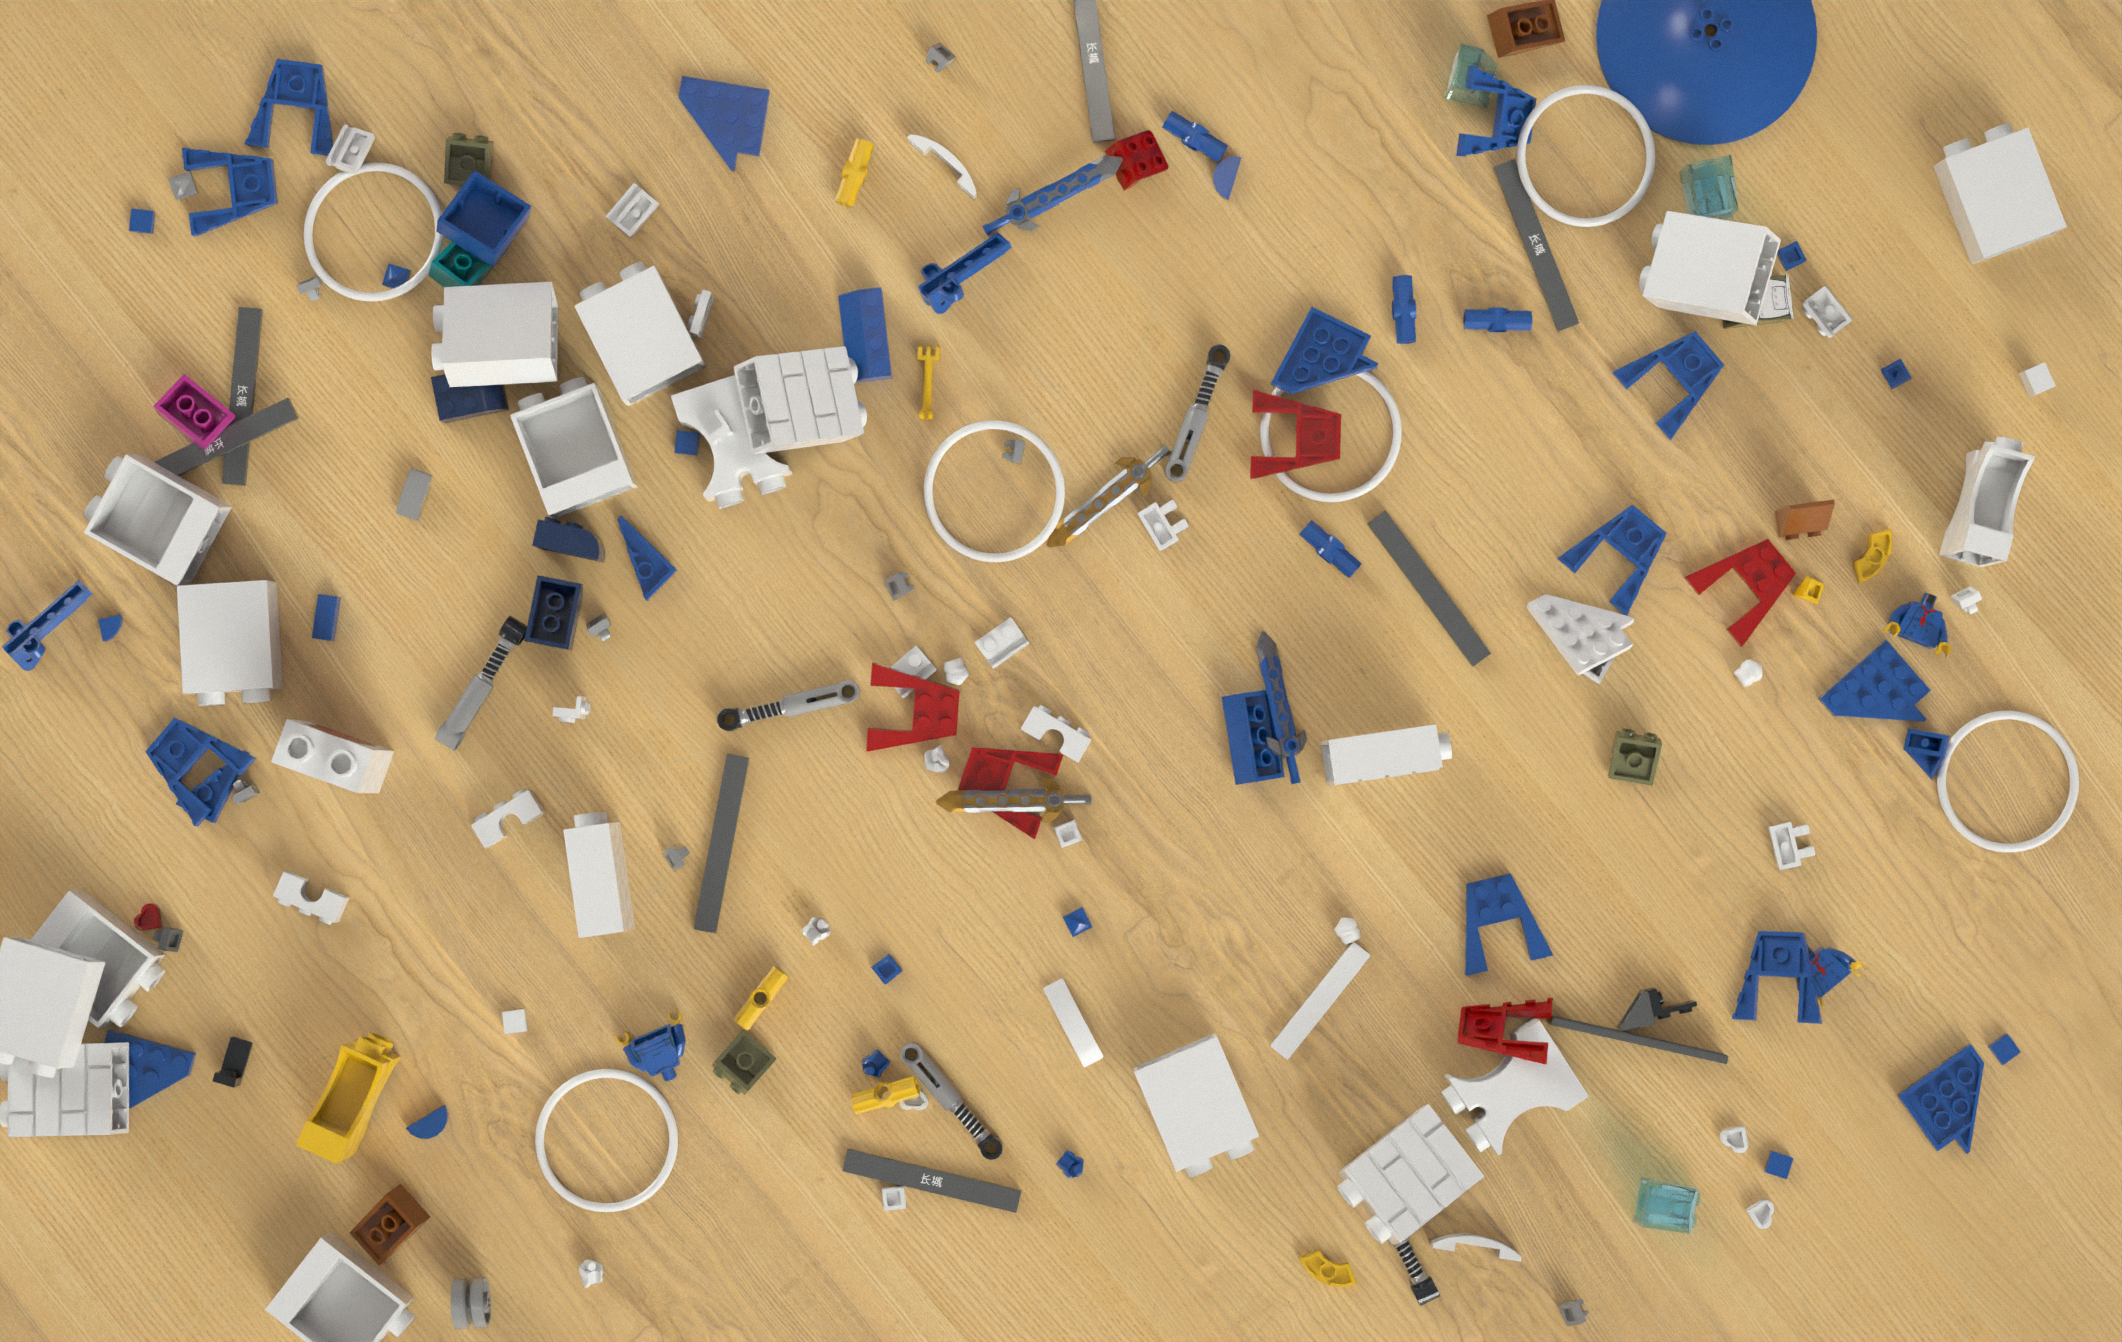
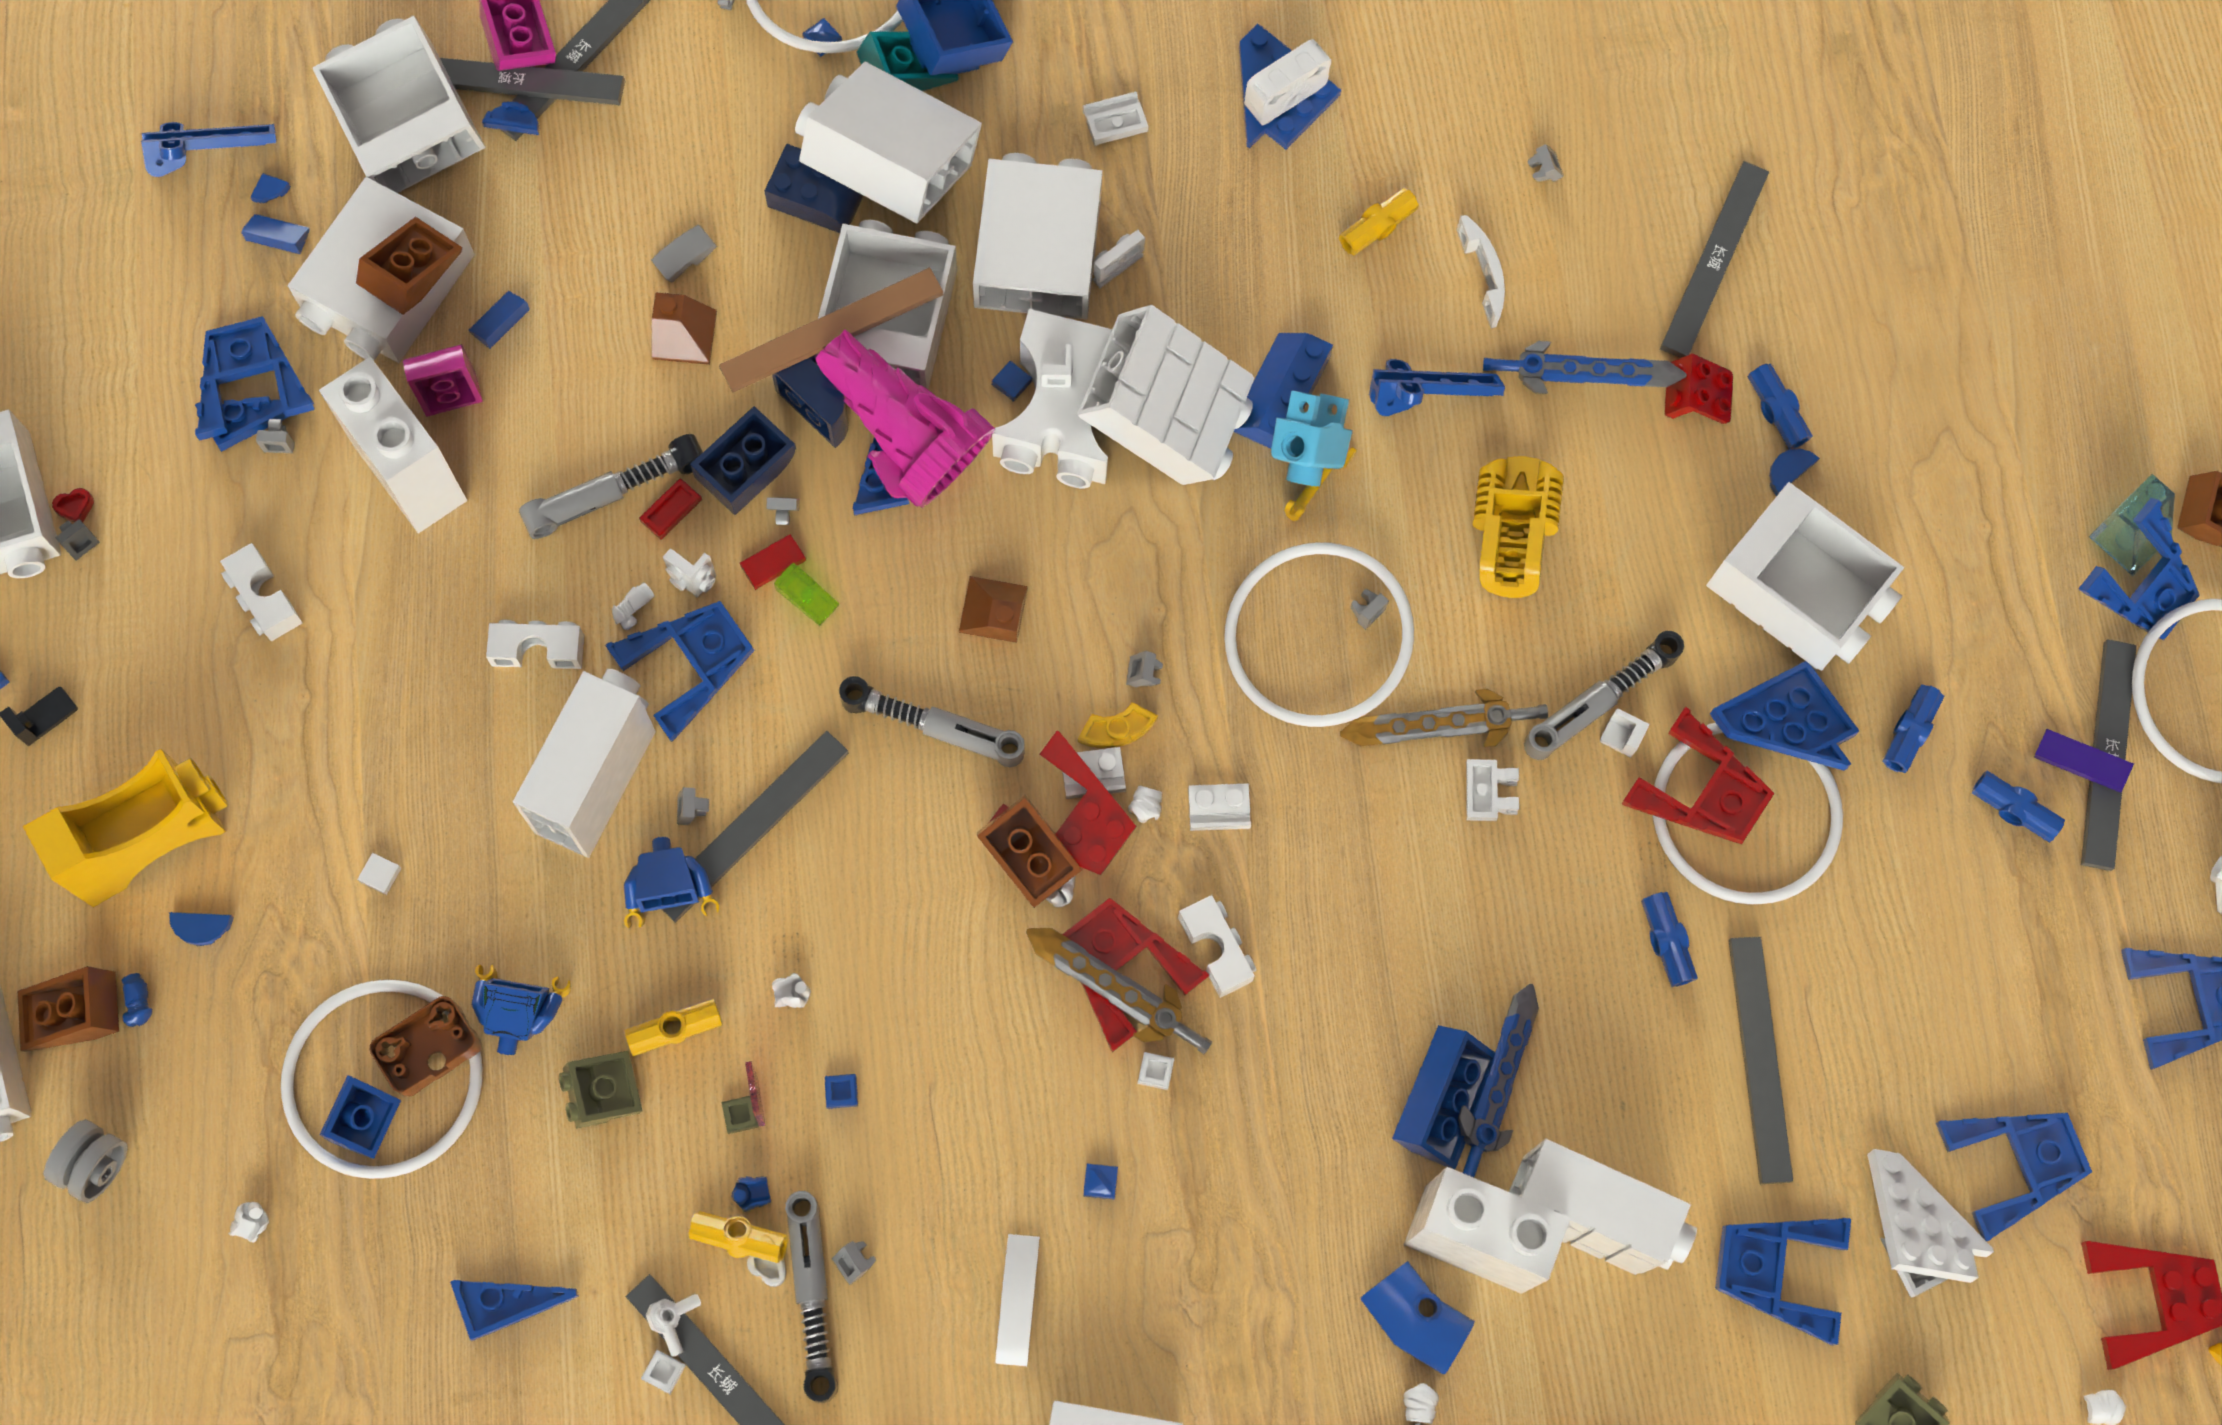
camera: 35 degrees right, 15 degrees down
(137, 654) = (275, 233): none -> blue slope
(234, 473) = (512, 117): none -> blue tile
(252, 630) = (406, 265): none -> dark orange slope
(325, 687) = (443, 380): none -> dark pink brick
(425, 1192) = (135, 998): none -> blue arm
(451, 548) = (682, 329): none -> dark orange slope
(527, 672) = (670, 508): none -> red tile
(548, 749) = (634, 600): none -> white arm
(554, 495) = (816, 335): none -> medium nougat tile
(614, 1103) = (418, 1039): none -> dark orange axle
(614, 1173) = (360, 1117): none -> blue slope
(617, 665) = (772, 561): none -> red tile
(617, 746) = (710, 644): none -> blue wing
(653, 673) = (805, 594): none -> clear neon green slope
(657, 527) = (920, 435): none -> dark pink cone
(695, 914) = (665, 881): none -> blue torso
(733, 116) = (1287, 81): none -> white axle
(770, 1225) = (494, 1306): none -> blue wing
(777, 605) = (993, 609): none -> dark orange slope
(836, 1022) = (739, 1115): none -> olive tile
(838, 1006) = (755, 1093): none -> piece
(874, 1167) = (664, 1318): none -> white piece
(903, 751) = (1029, 851): none -> dark orange slope
(907, 633) = (1117, 729): none -> yellow tile
(909, 364) = (1312, 437): none -> medium azure piece
(962, 1065) = (852, 1262): none -> light grey tile
(1070, 328) = (1516, 510): none -> yellow connector
(1224, 431) = (1624, 732): none -> white panel
(1282, 254) = (1808, 579): none -> white brick
(1325, 812) = (1487, 1231): none -> white brick
(1329, 890) = (1429, 1339): none -> blue panel
(1495, 718) = (1754, 1263): none -> blue wing
(1522, 262) = (2084, 760): none -> dark purple tile

